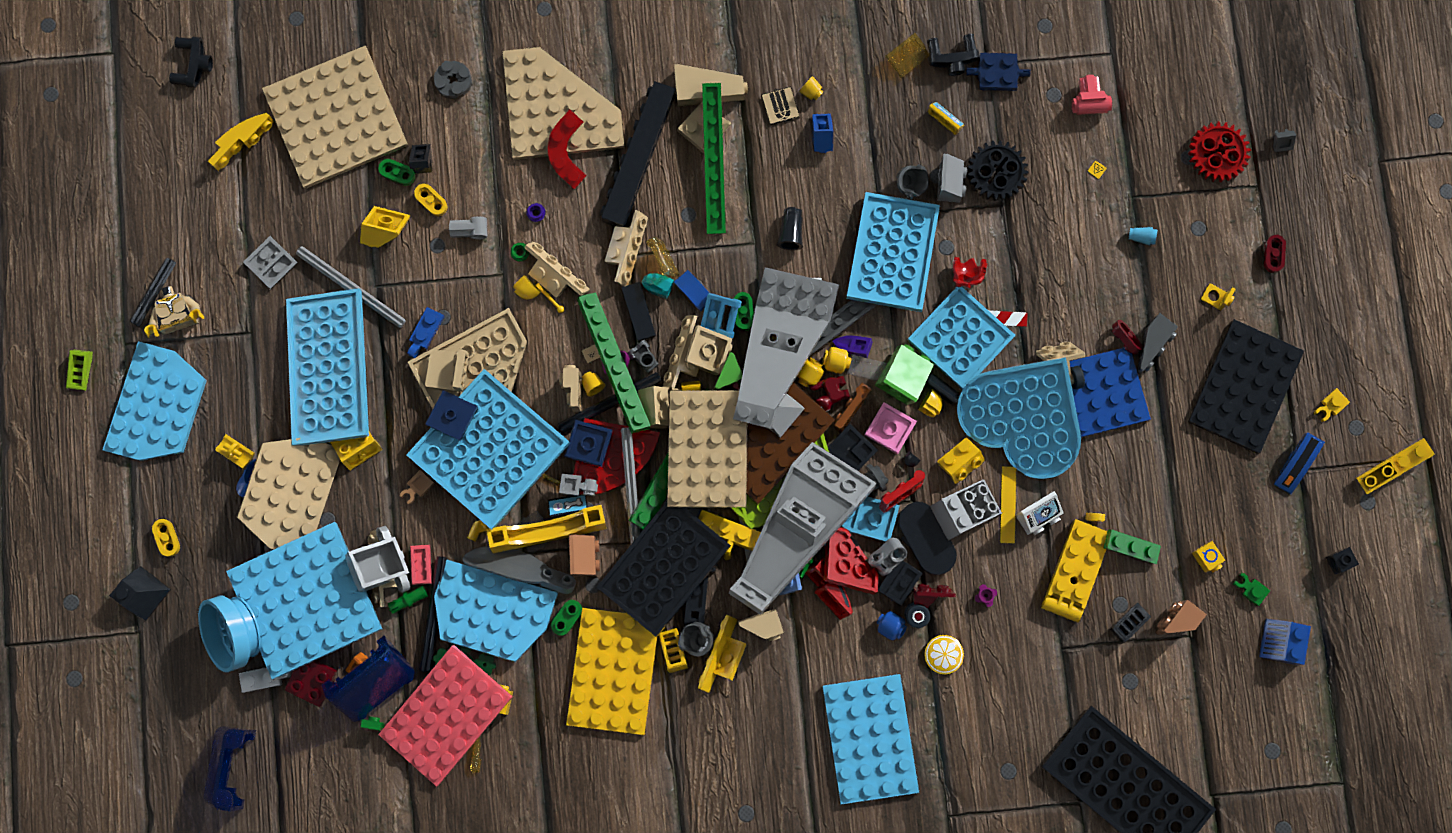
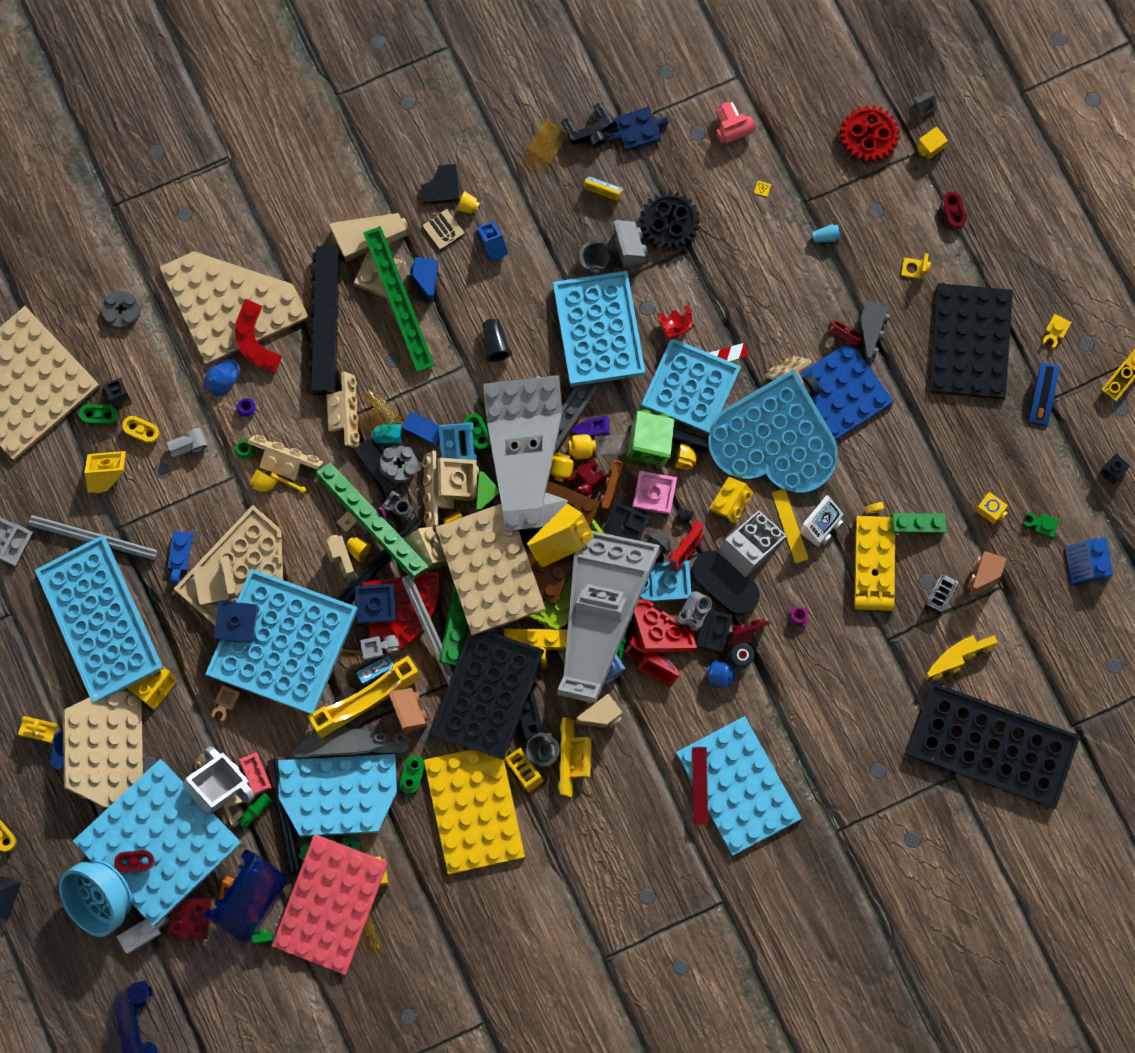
camera: 20 degrees left, 5 degrees down
(275, 612) = (135, 861): none -> dark red plate
(477, 527) = (296, 720): yellow arm -> none
(524, 176) = (222, 377): none -> blue piece
(650, 322) = (405, 456): none -> plate
(747, 144) = (425, 275): none -> blue slope
(784, 443) = (561, 536): none -> yellow slope
(793, 65) = (442, 187): none -> black tile
(833, 727) = (700, 786): none -> dark red sticker
(944, 654) = (779, 684): dish -> none
(1119, 690) = (953, 660): none -> yellow slope
(1276, 181) = (932, 143): none -> yellow brick

